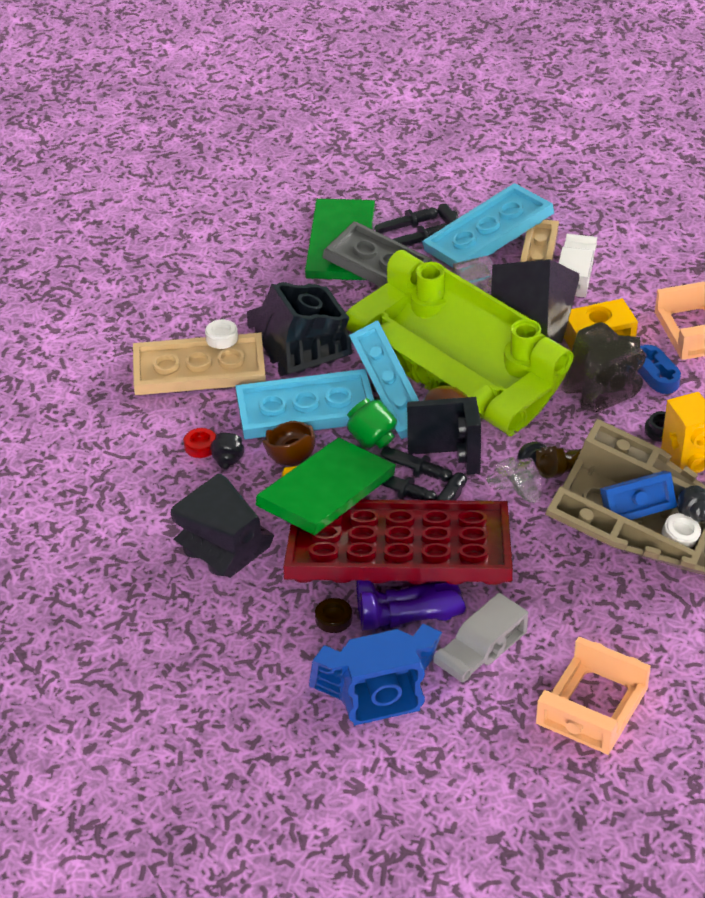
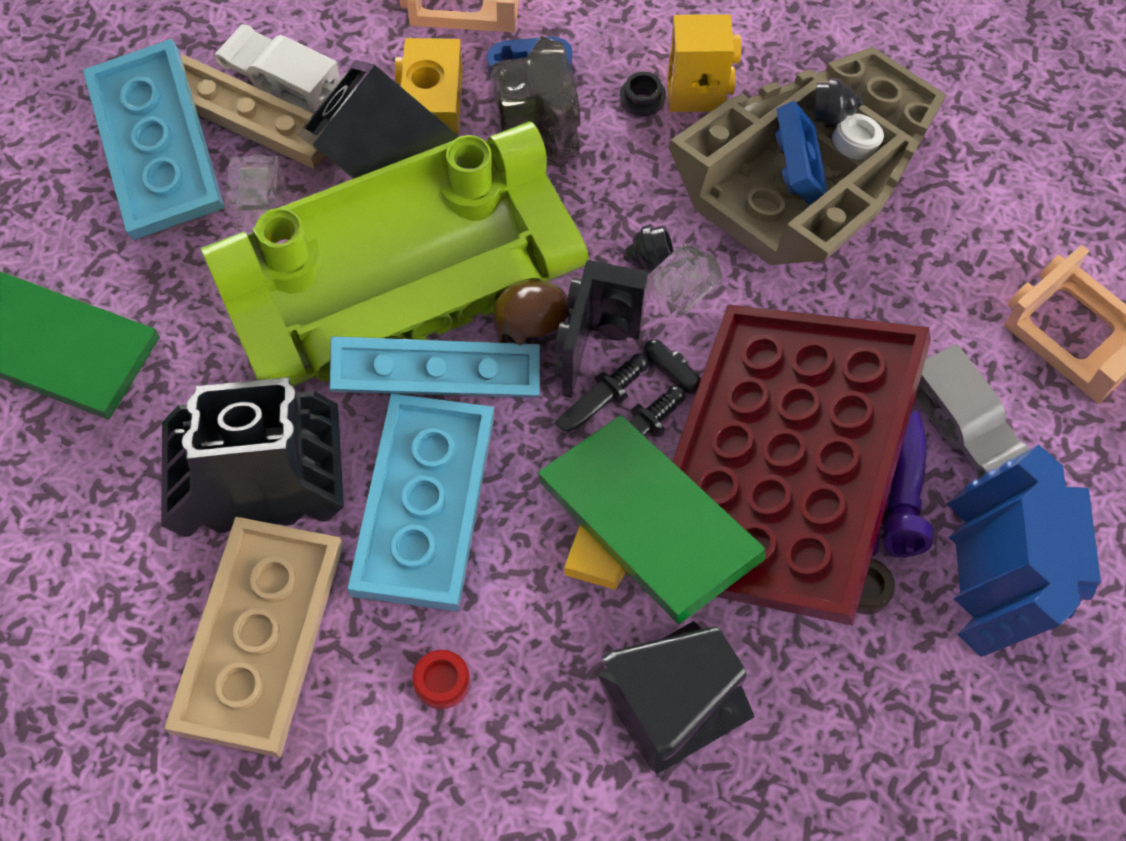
camera: 75 degrees left, 20 degrees up
(221, 334) = (220, 576): white tile -> none
(227, 449) = (485, 642): black plate -> none
(290, 443) = (510, 532): reddish brown hair -> none
(365, 252) = (133, 304): dark grey tile -> none
(371, 424) = (522, 420): green head -> none
(413, 218) = (100, 228): black piece -> none
(554, 461) = (691, 220): dark brown piece -> none

